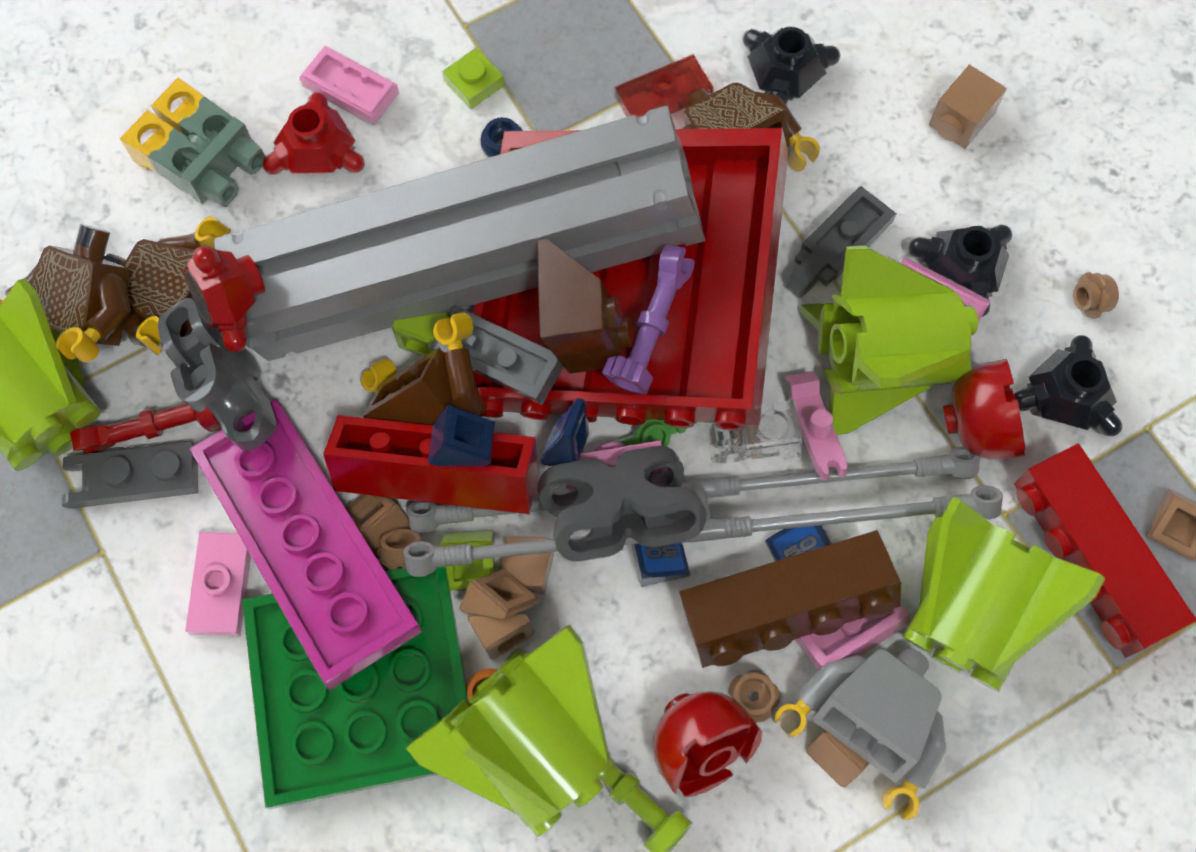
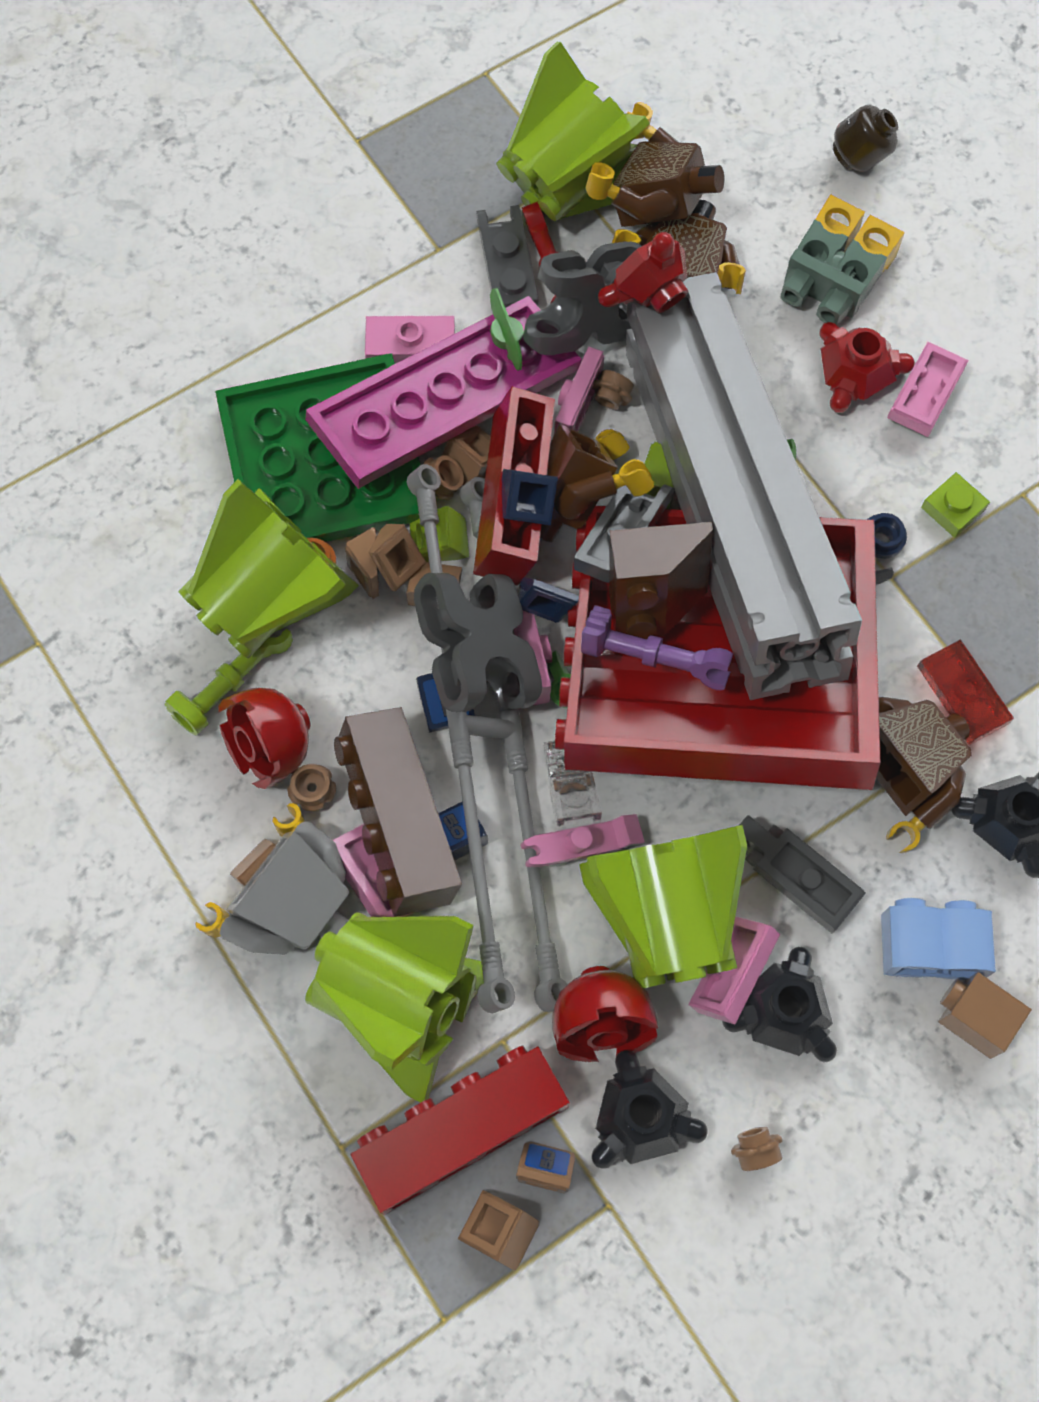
camera: 85 degrees right, 0 degrees up
(51, 104) = (865, 138): none -> dark brown head
(238, 467) = (506, 330): none -> bright green piece
(313, 401) = (577, 394): none -> bright pink plate
(314, 372) = (613, 389): none -> medium nougat plate
(903, 135) = (936, 940): none -> light blue brick
(1130, 473) = (546, 1167): none -> slope

